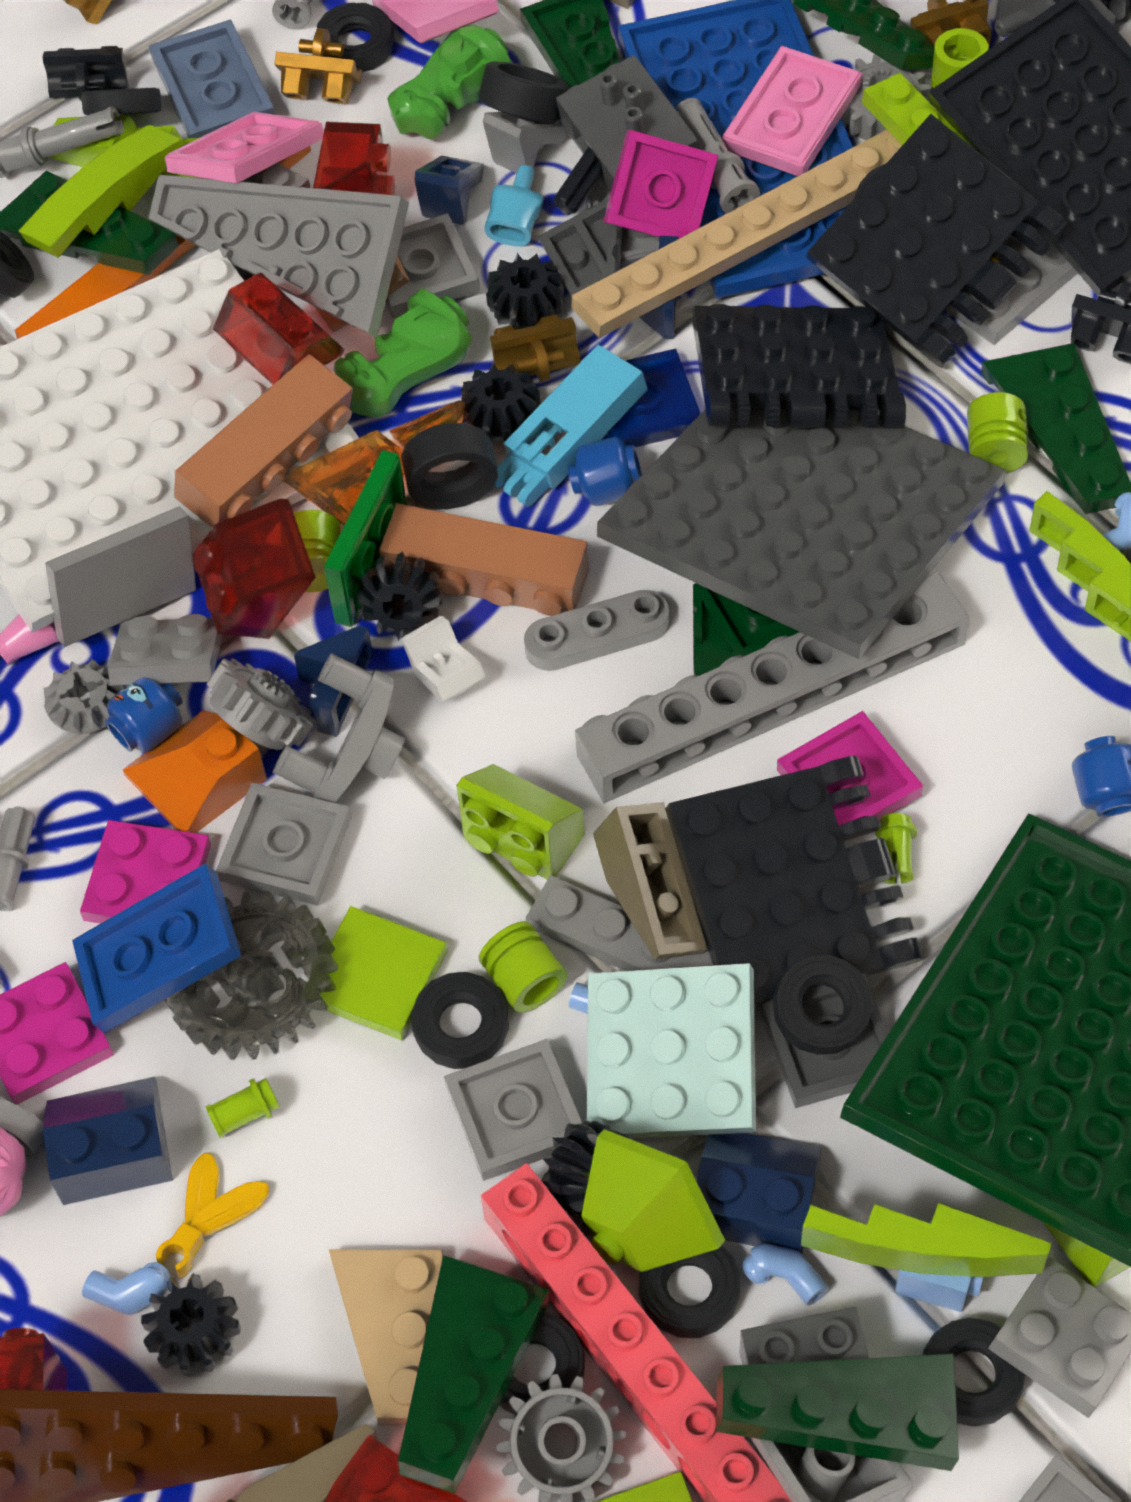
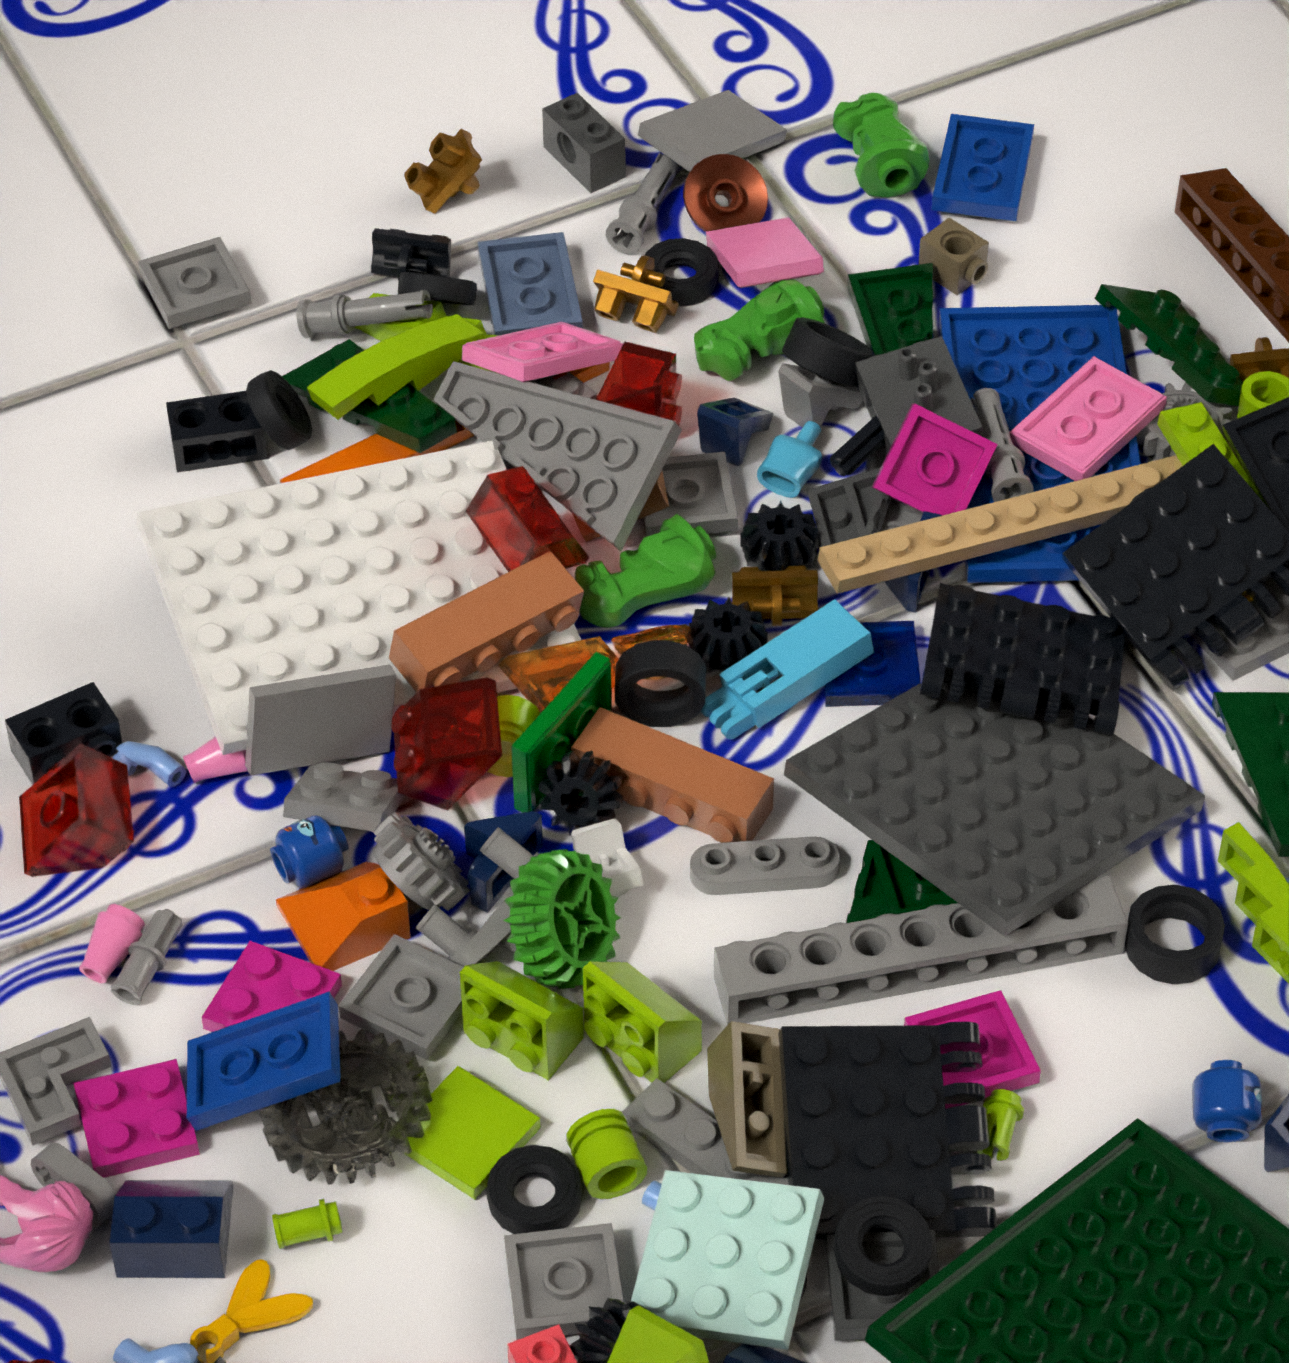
camera: 10 degrees right, 10 degrees down
(67, 710) = (236, 828): light grey gear -> none
(399, 843) = (519, 1017): none -> lime slope
(418, 733) = (561, 917): none -> bright green gear
(604, 470) = (810, 717): blue head -> none
(998, 430) = (1209, 758): lime piece -> none
(1021, 585) = (1168, 964): none -> black tyre

